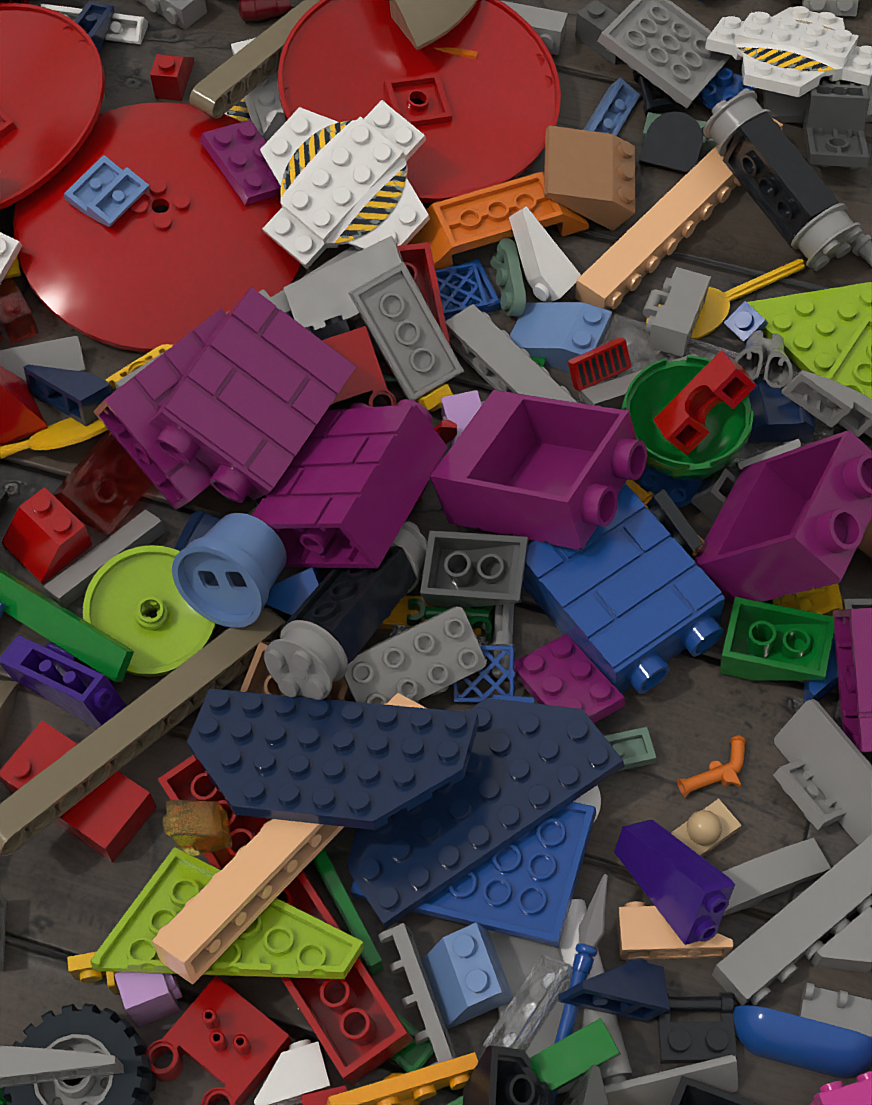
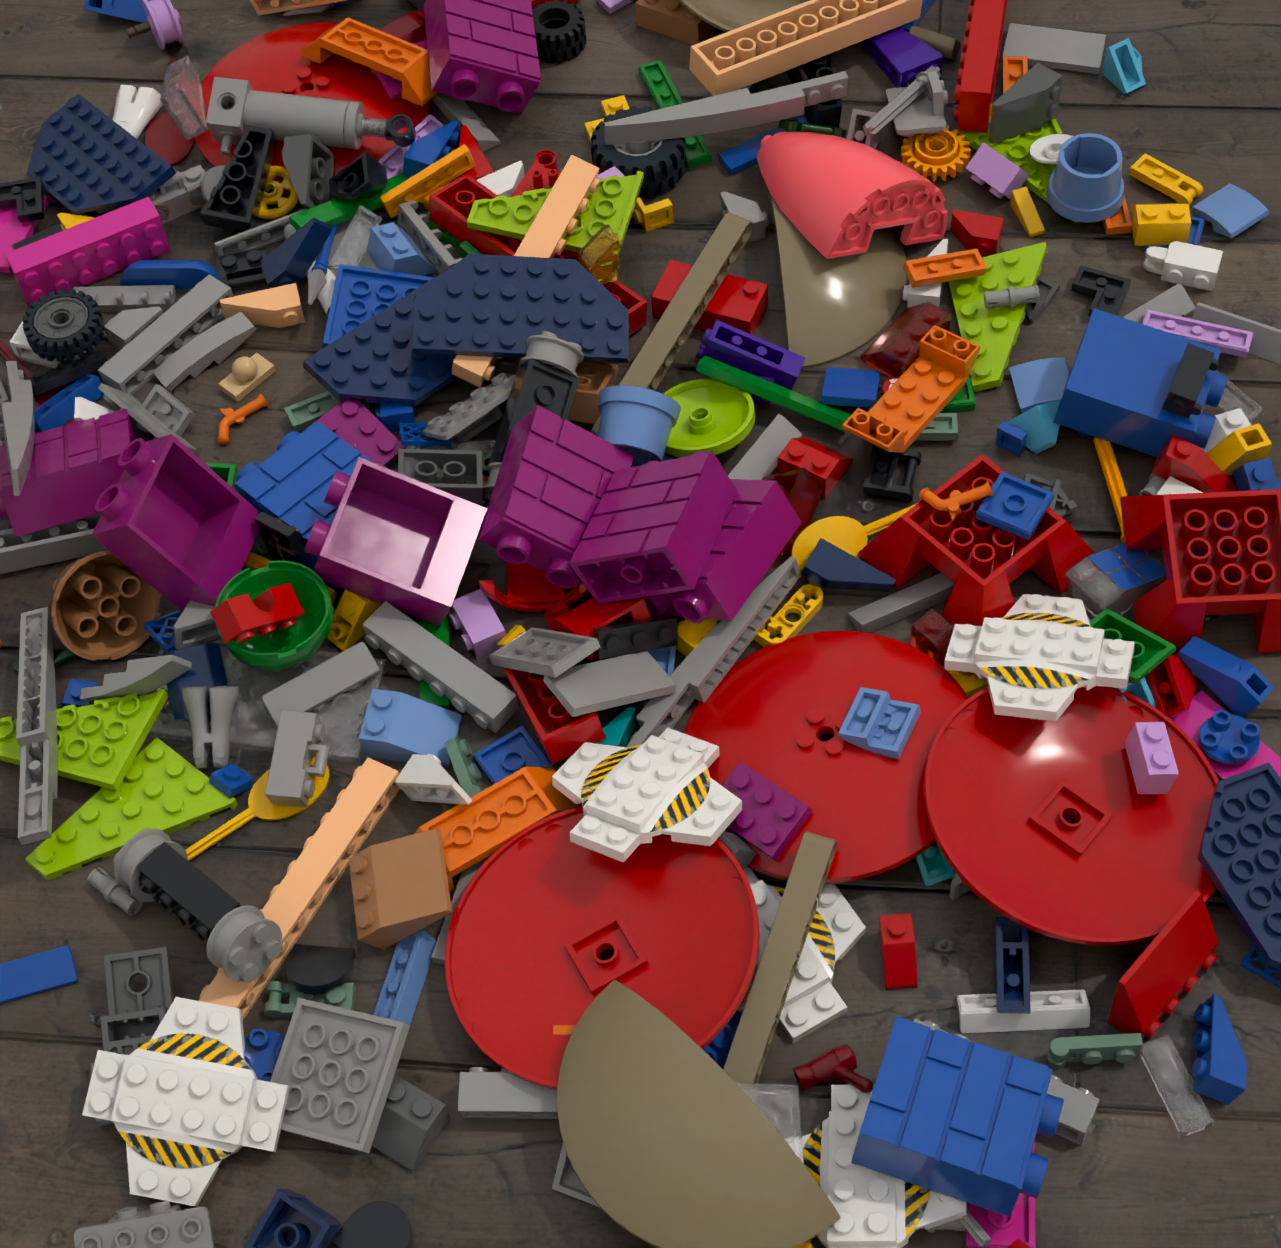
camera: 170 degrees right, 5 degrees down
(452, 271) = (507, 736): blue window -> none
(599, 364) = (364, 686): red tile -> none
(676, 880) = (262, 317): dark purple slope -> none

